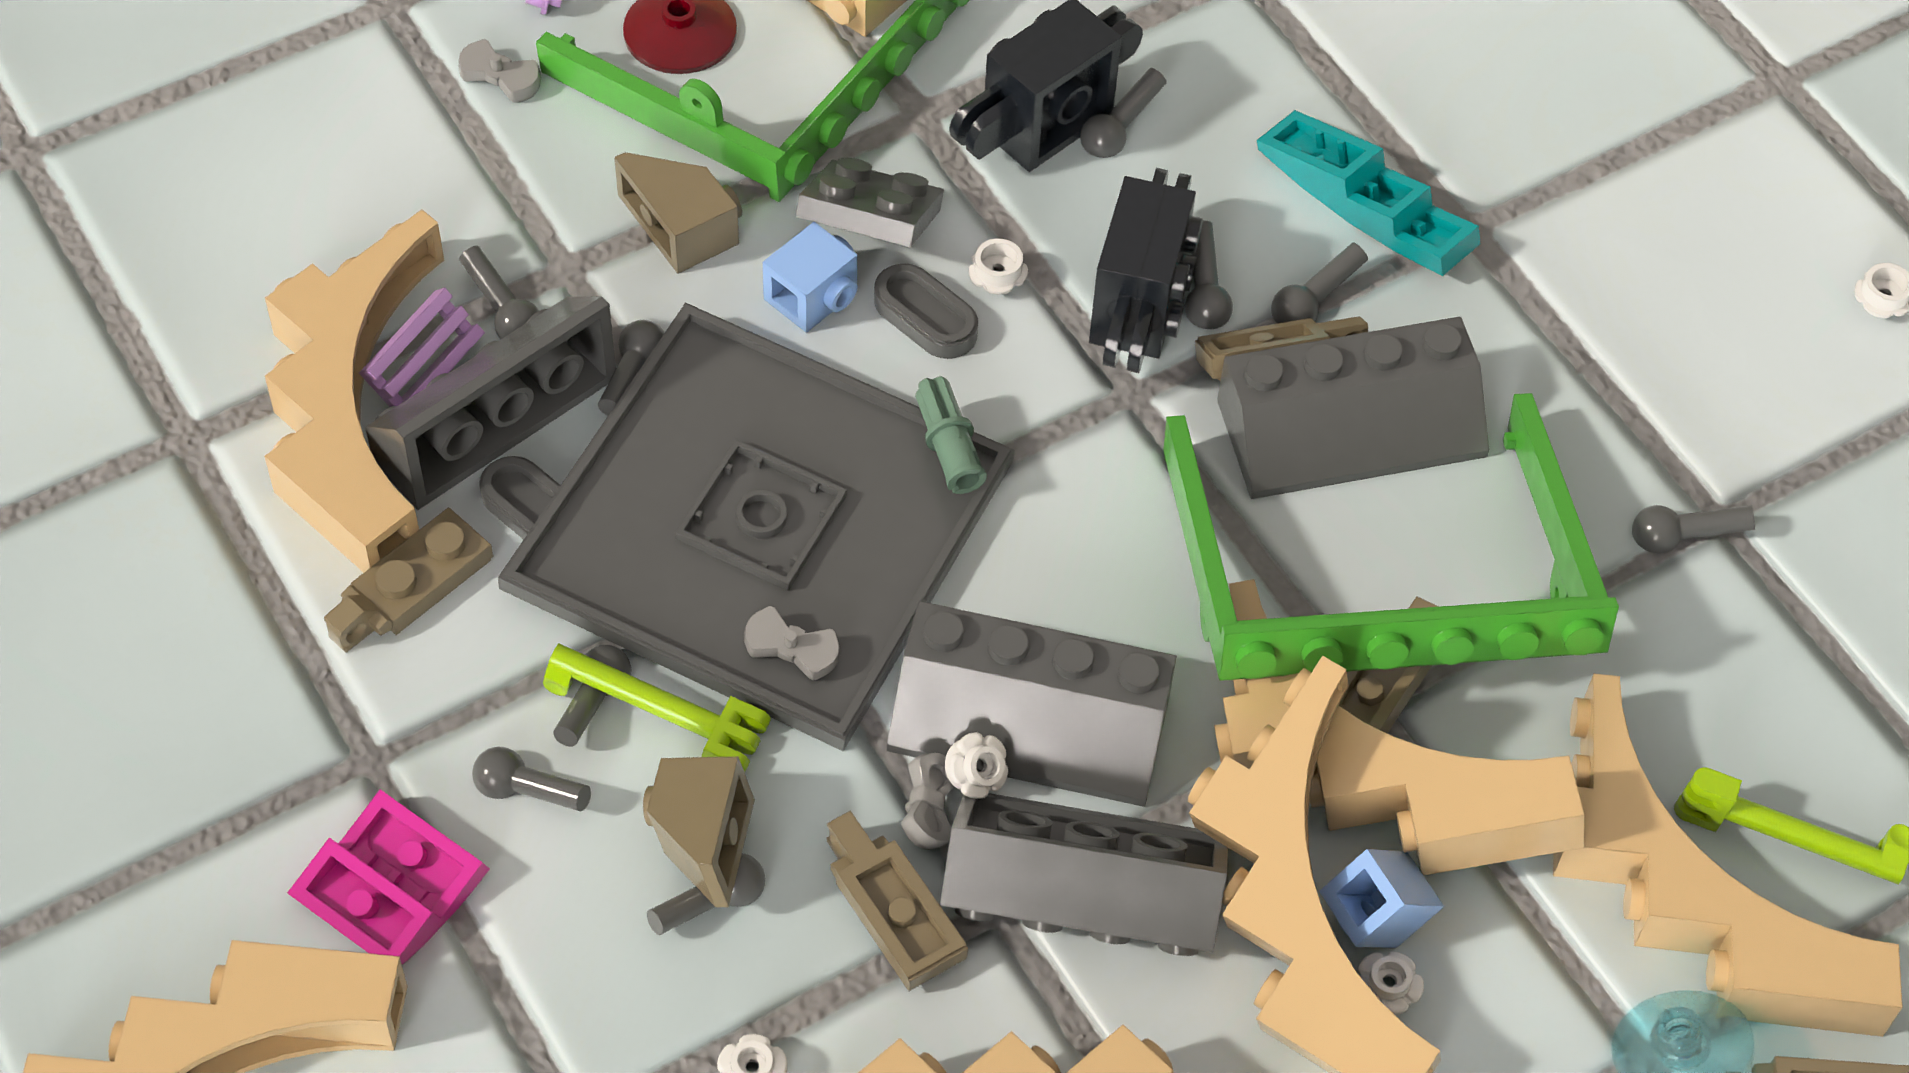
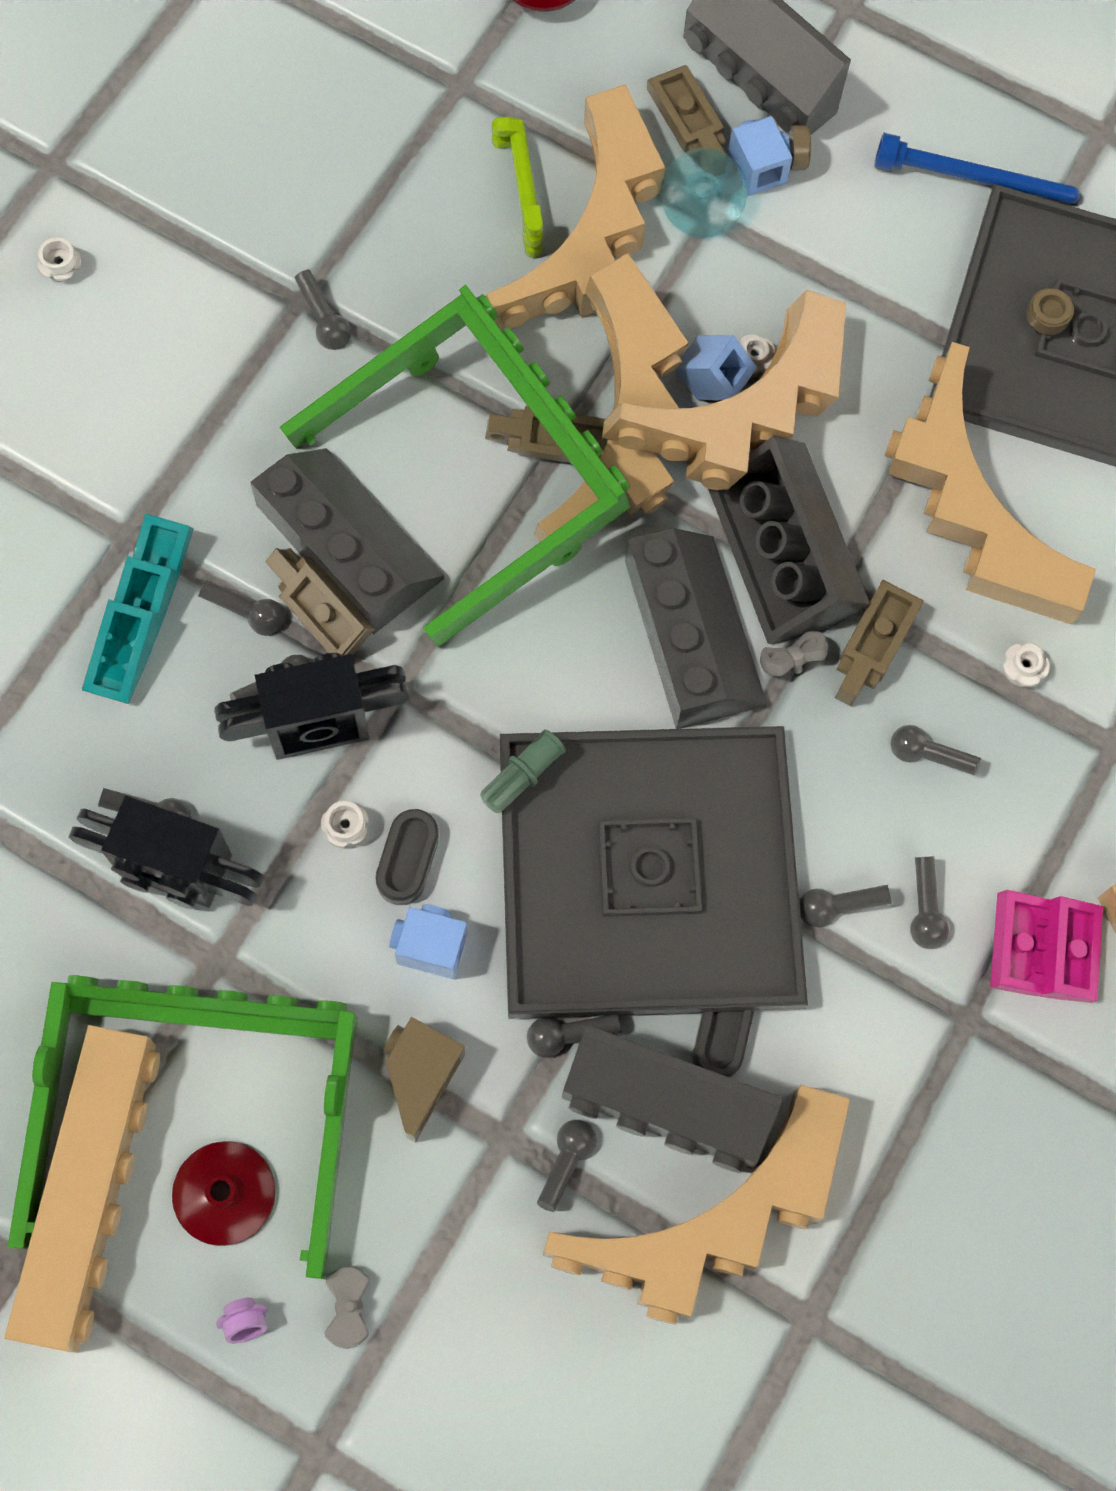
camera: 120 degrees left, 15 degrees up
(408, 580) = (834, 1071): dark tan hinge -> none
(453, 321) = (654, 1182): lavender tile -> none
(702, 819) = (906, 769): dark tan slope -> none
(724, 732) = (821, 807): lime hinge -> none
(811, 652) = (742, 806): light grey piece -> none
(870, 202) = (345, 932): dark grey plate -> none
(962, 762) = (760, 632): white plate -> none

